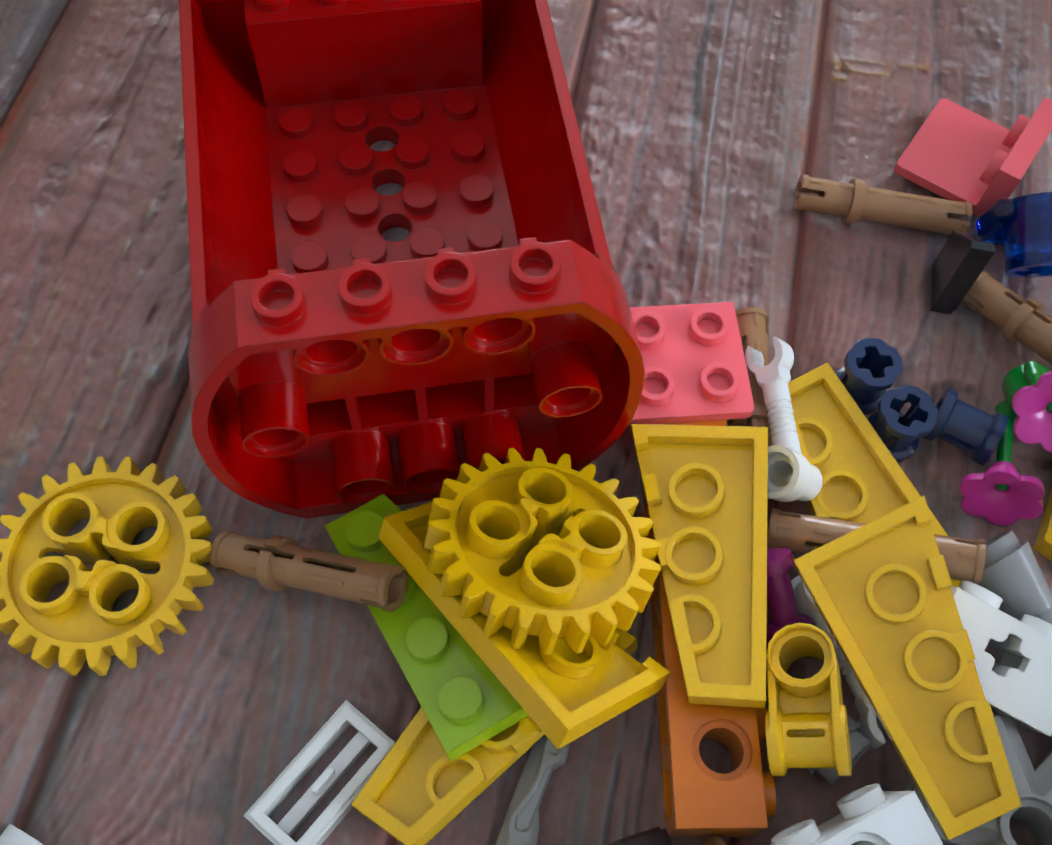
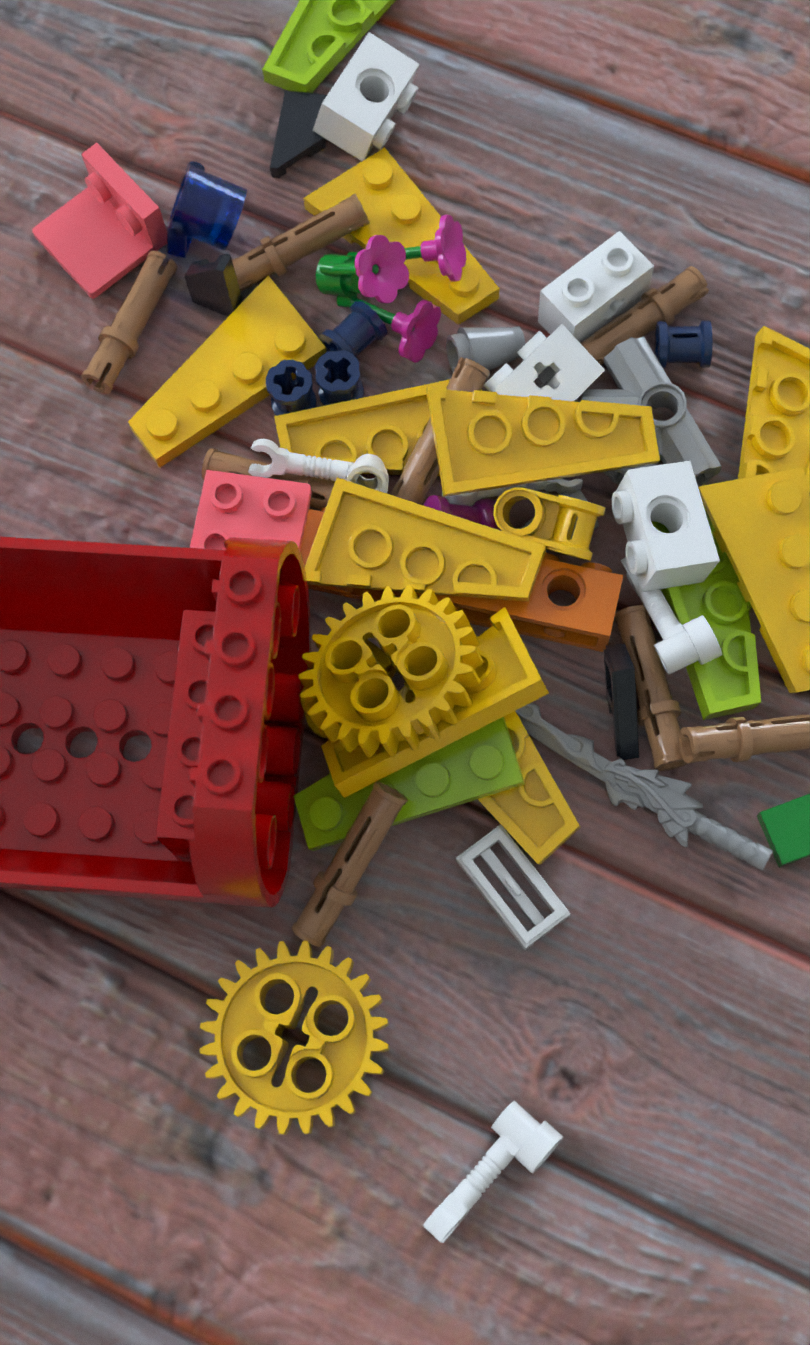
camera: 65 degrees left, 10 degrees up
(850, 304) = (225, 373): none -> yellow wing

